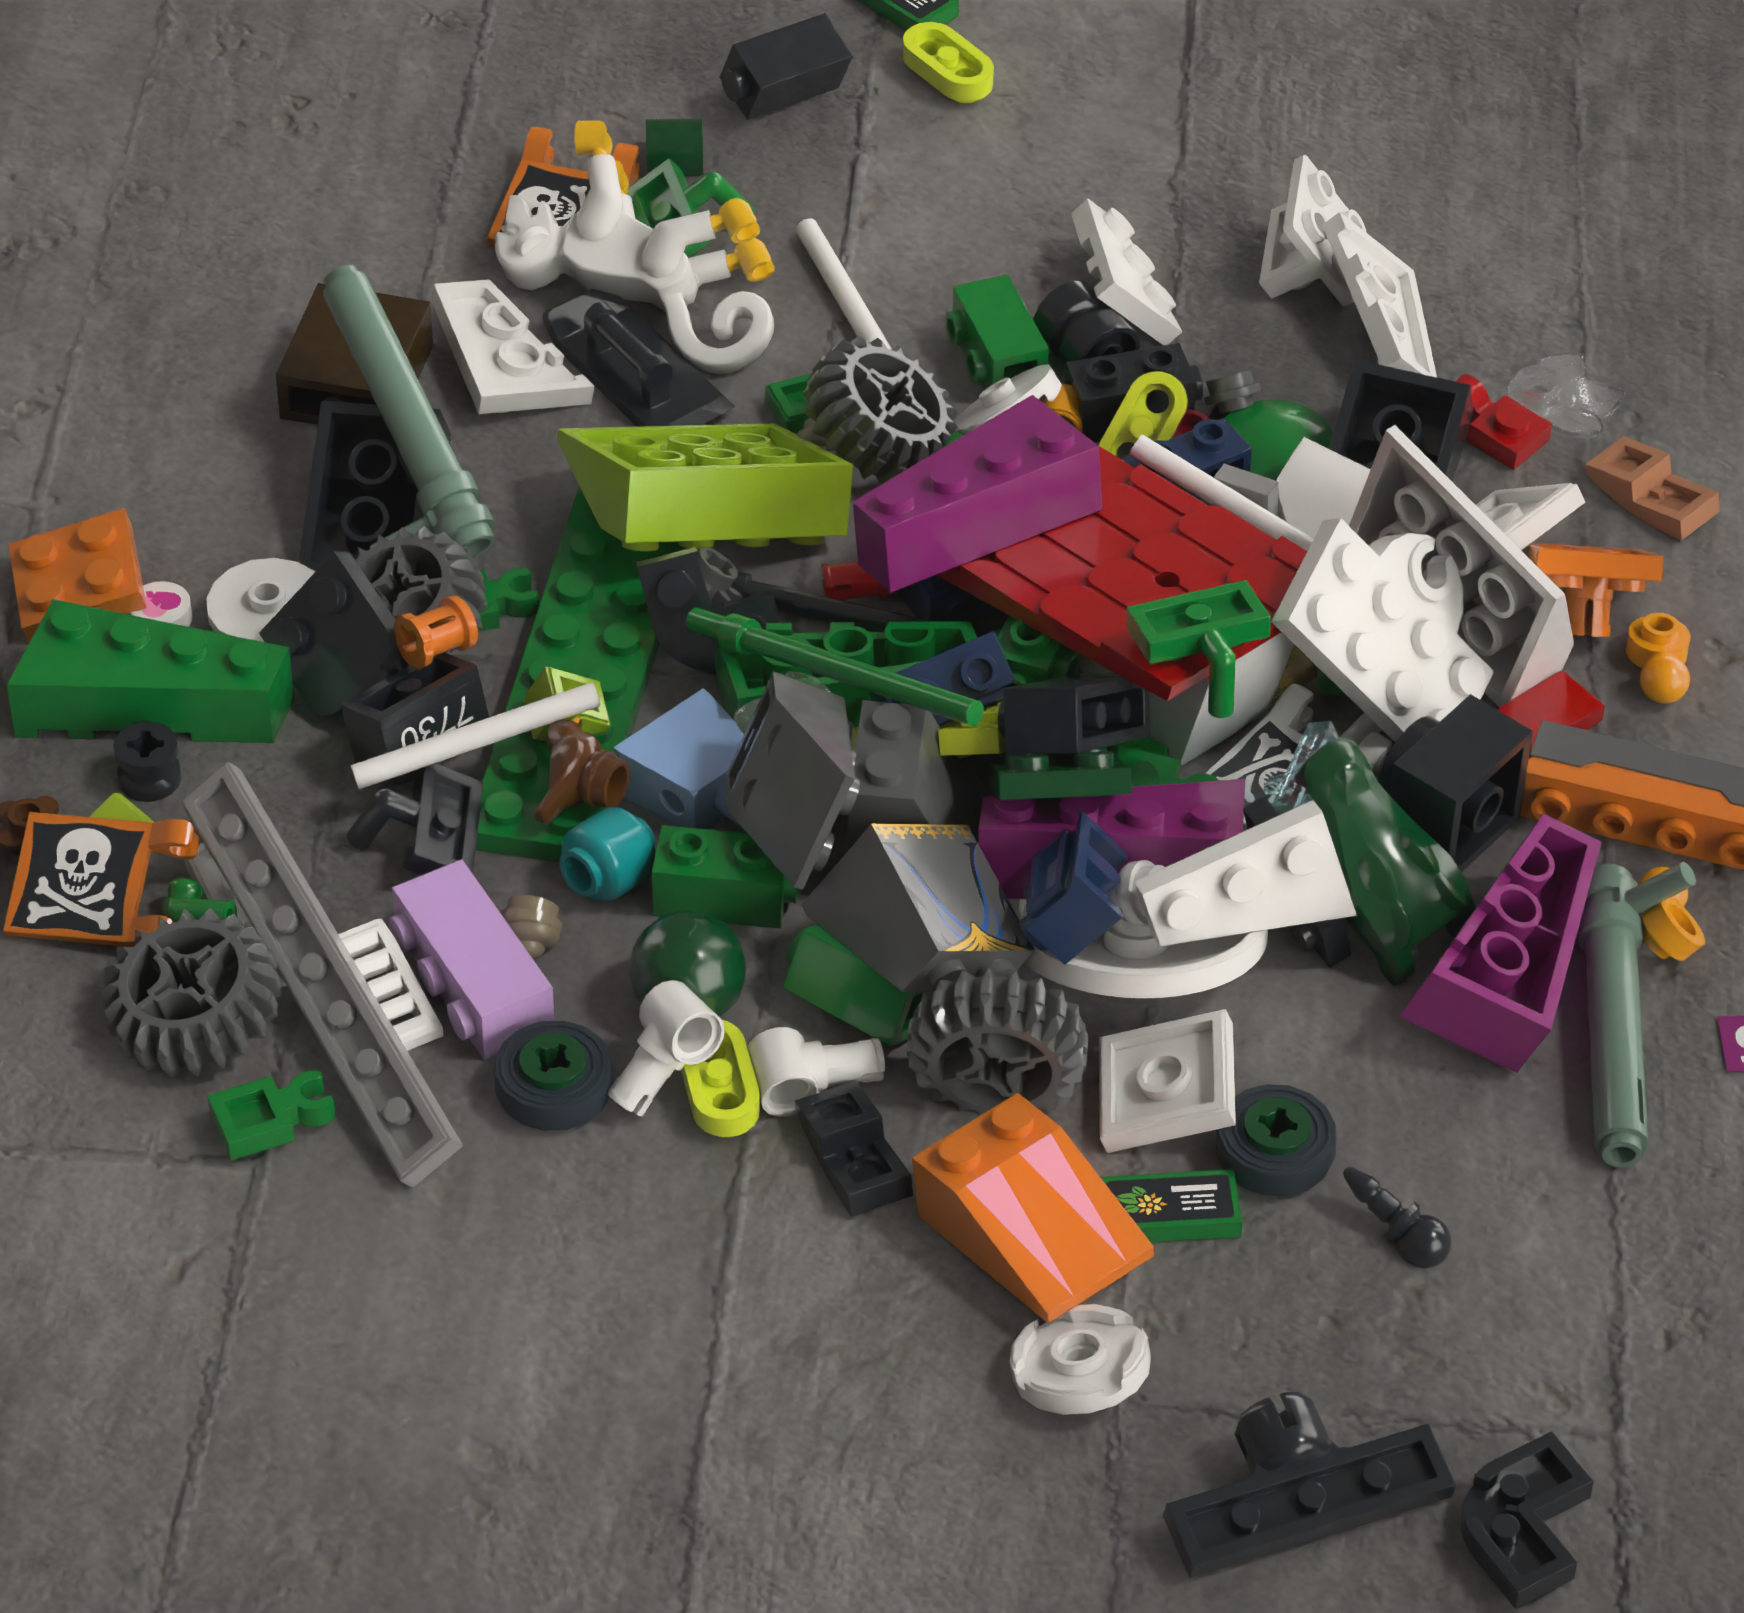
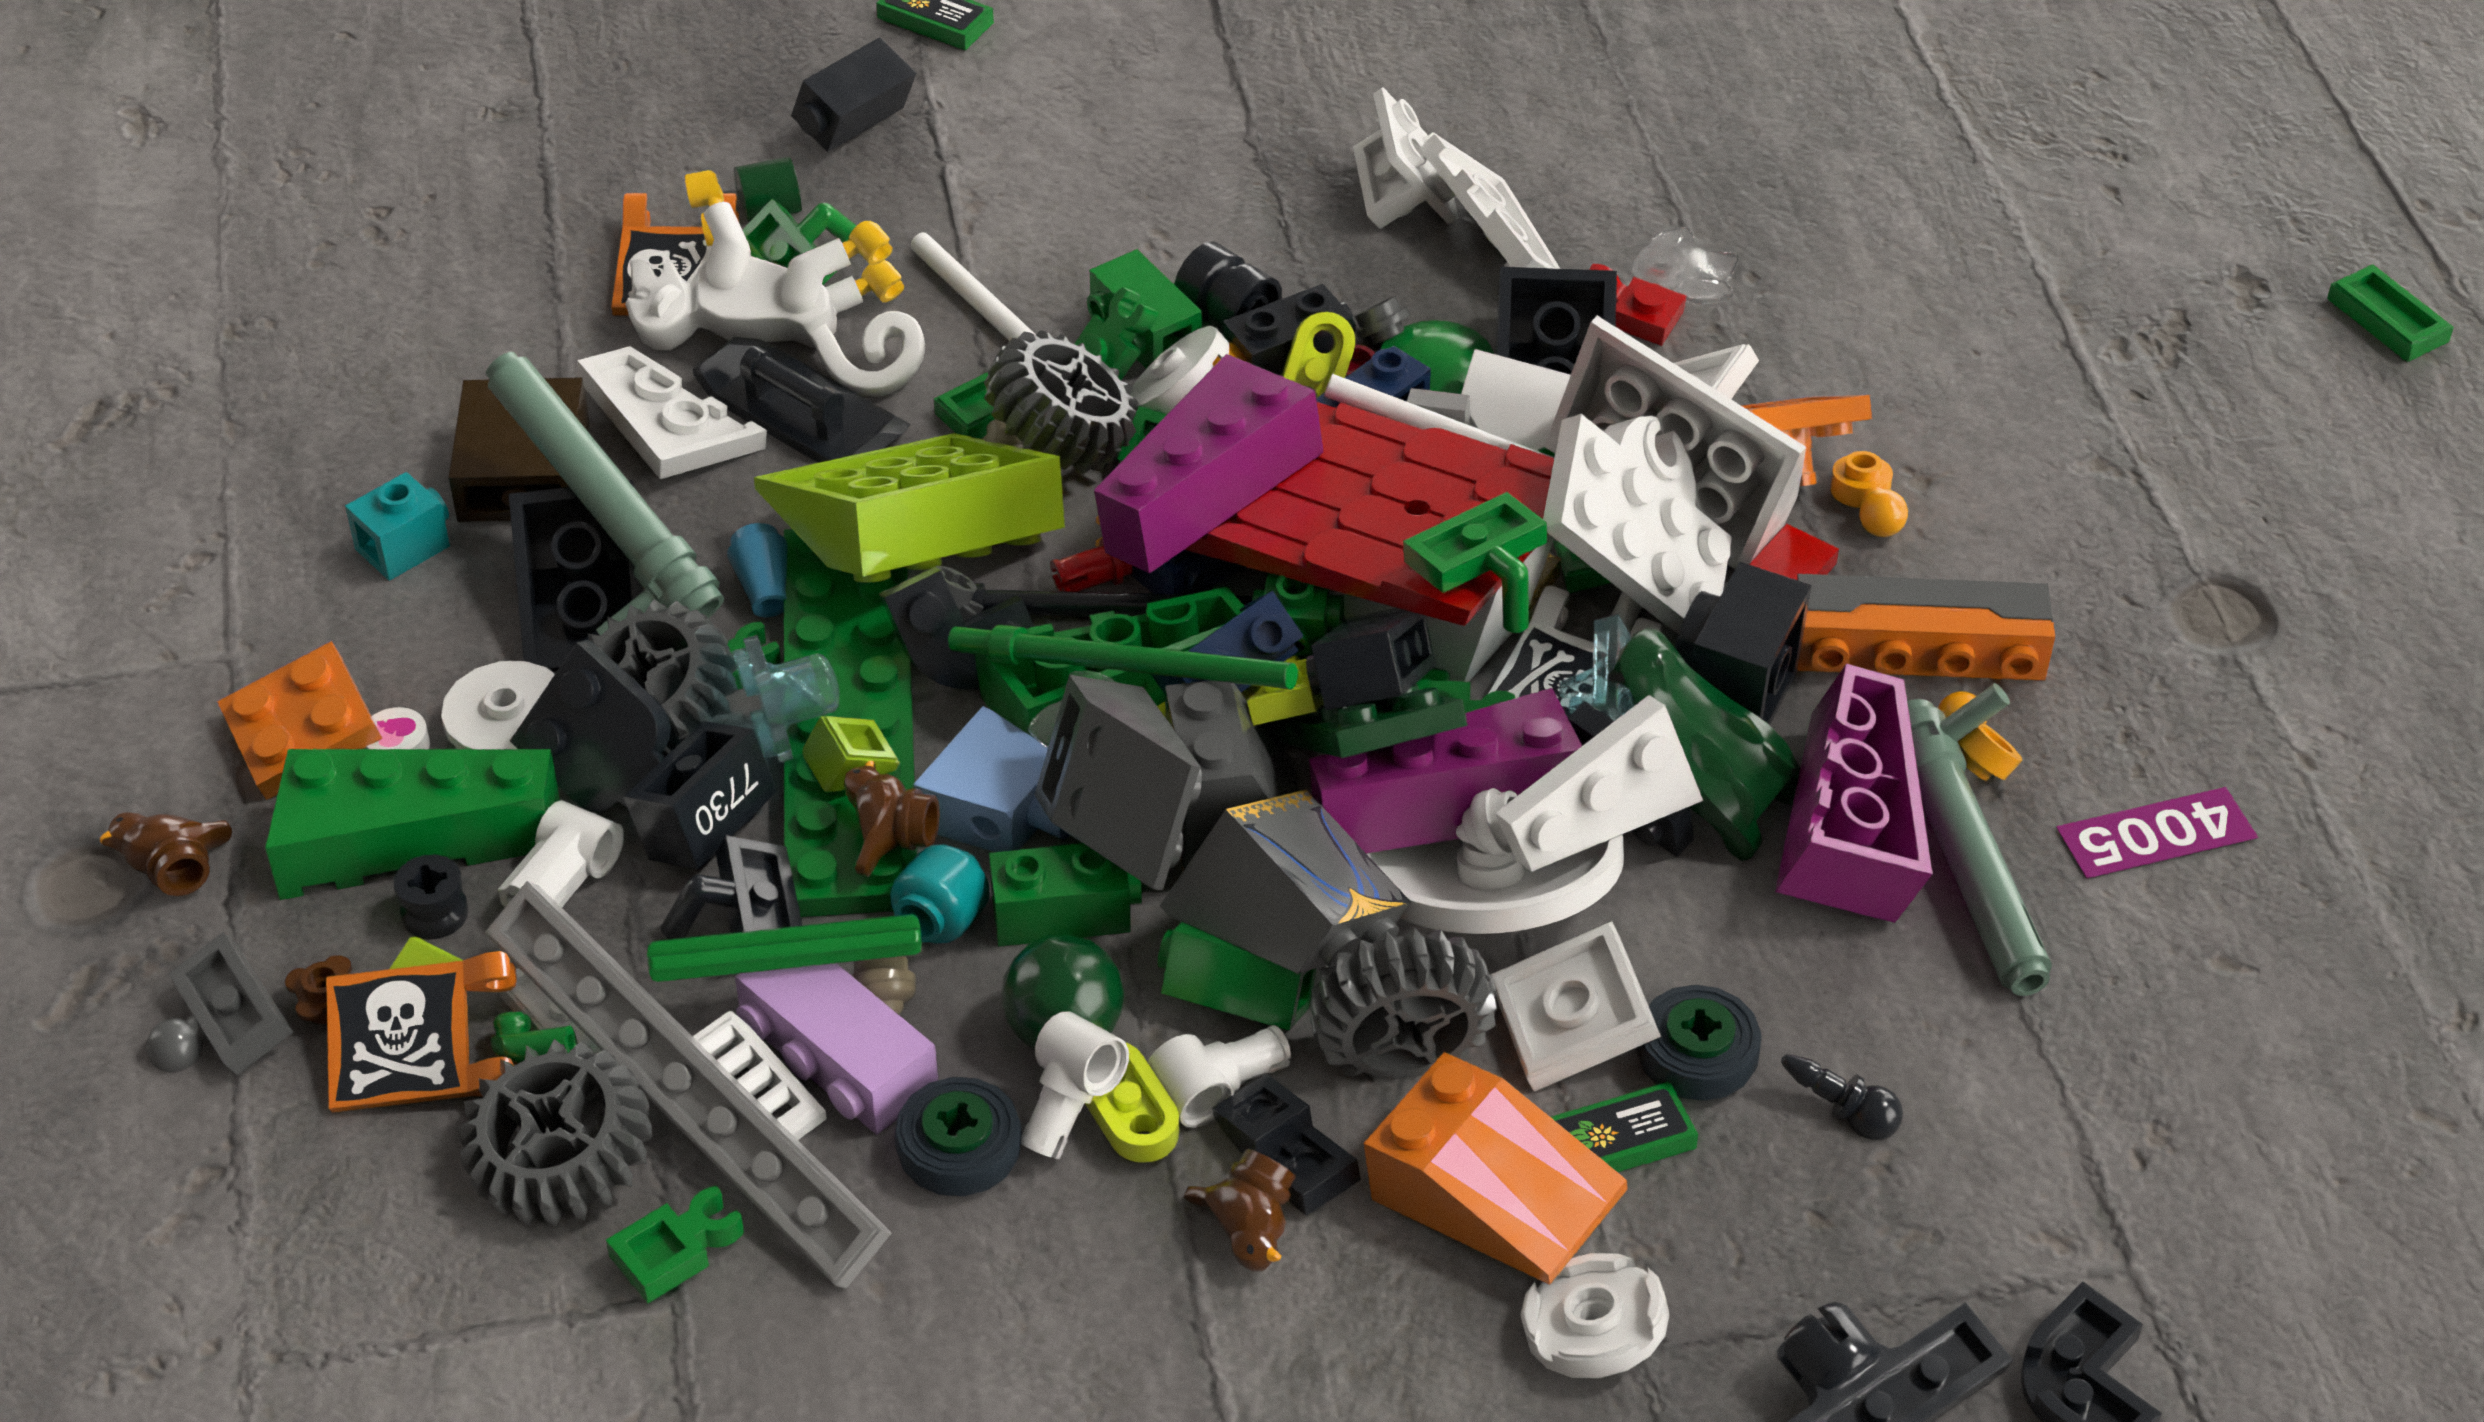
camera: 15 degrees left, 0 degrees up
(221, 411) = (398, 525): none -> teal brick
(283, 743) = (566, 851): none -> white piece
(436, 631) = (702, 703): orange bush -> none
(442, 871) = (784, 948): none -> green axle
(475, 735) = (771, 801): white bar -> none
(518, 639) = (785, 694): none -> clear light blue plate
(545, 514) = (760, 564): none -> dark azure cone
(796, 1195) = (1249, 1207): none -> reddish brown animal
(948, 62) = (1003, 65): neon yellow plate -> none
(955, 356) = (1115, 334): none -> green plate
(1069, 890) = (1434, 835): dark blue window -> none
(1124, 272) = (1243, 226): white wing -> none
(1643, 485) = (1786, 335): nougat slope -> none

